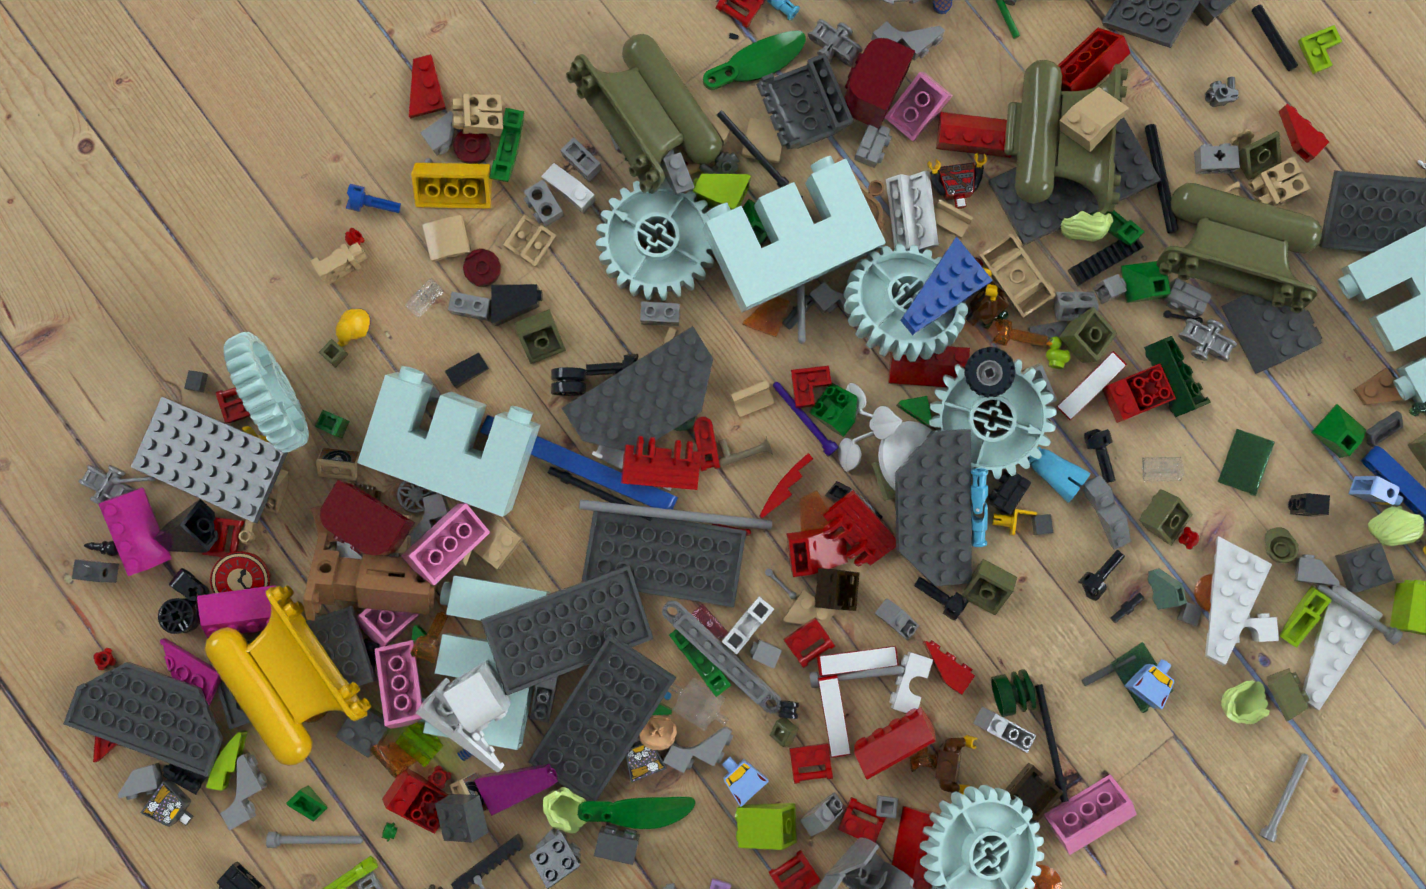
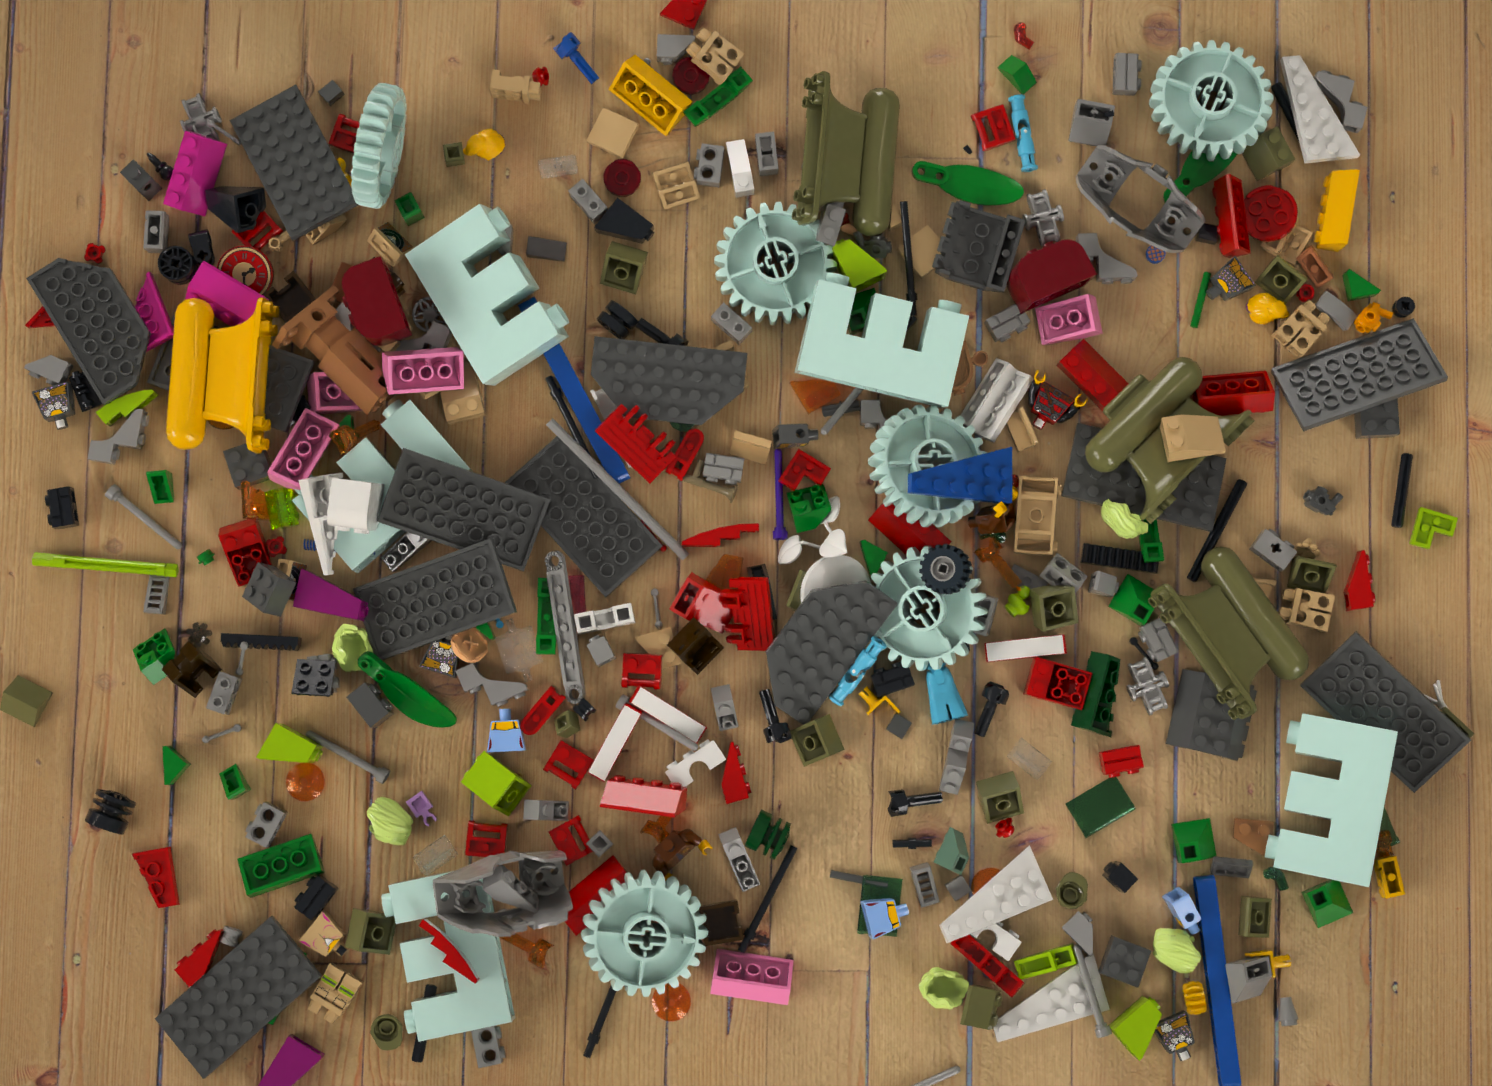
camera: 35 degrees right, 0 degrees up
(140, 602) = (156, 231): none -> light grey brick
(293, 569) = (291, 298): none -> dark brown piece
(744, 432) = (723, 468): none -> light grey brick
(756, 739) = (541, 712): none -> red plate
(779, 363) = (785, 435): none -> dark grey torso
(1151, 626) = (925, 867): none -> light grey slope
(1234, 413) = (1121, 760): none -> red brick
(1266, 655) = (988, 964): none -> red slope

